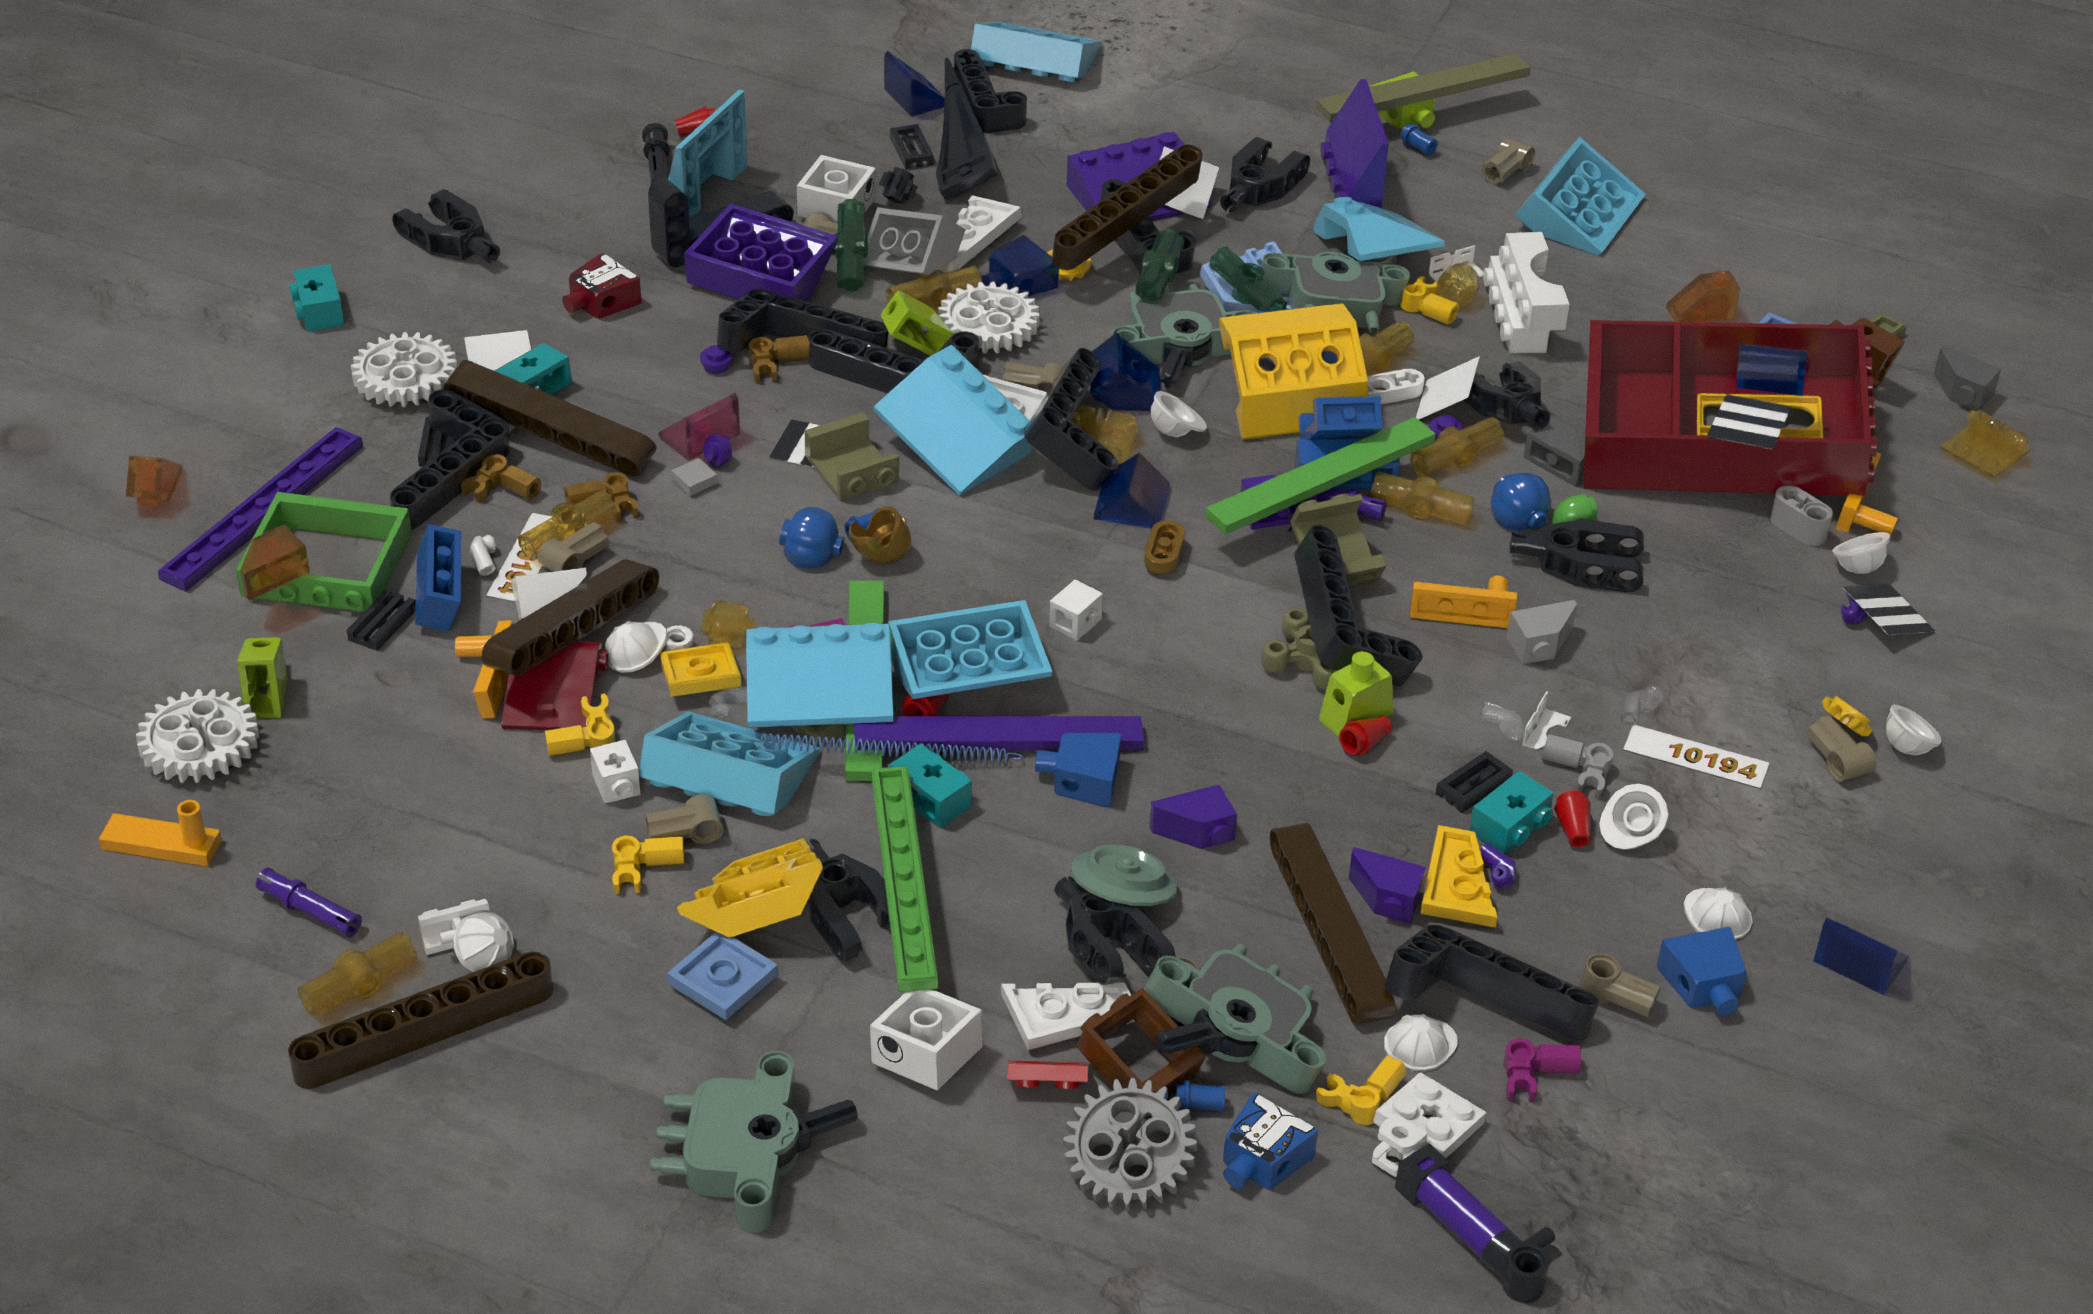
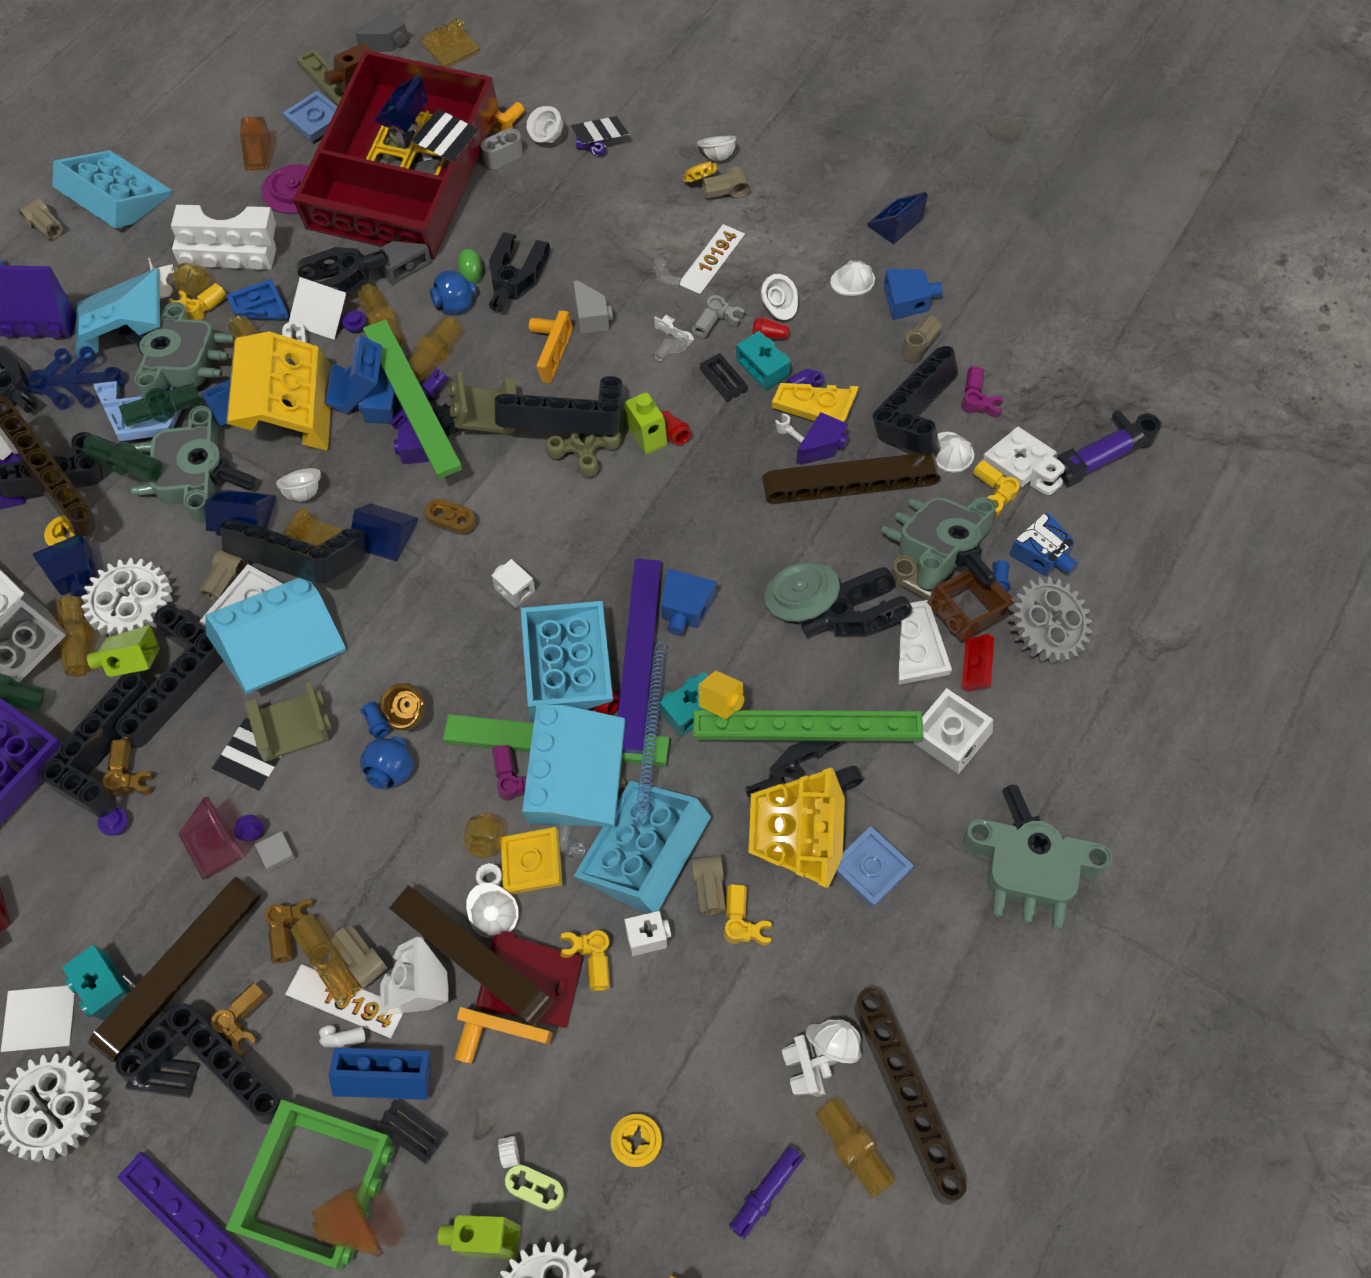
camera: 80 degrees left, 20 degrees up
(312, 716) = (538, 1180): none -> yellowish green beam
(358, 699) = (508, 1152): none -> white axle
(361, 783) = (626, 1128): none -> yellow gear
(926, 778) = (721, 694): none -> yellow brick
(1195, 818) = (747, 537): dark purple slope -> none
(1267, 207) = (70, 378): none -> clear blue plant
(1407, 851) = (786, 427): none -> white hand
(1445, 344) = (258, 302): none -> blue wing

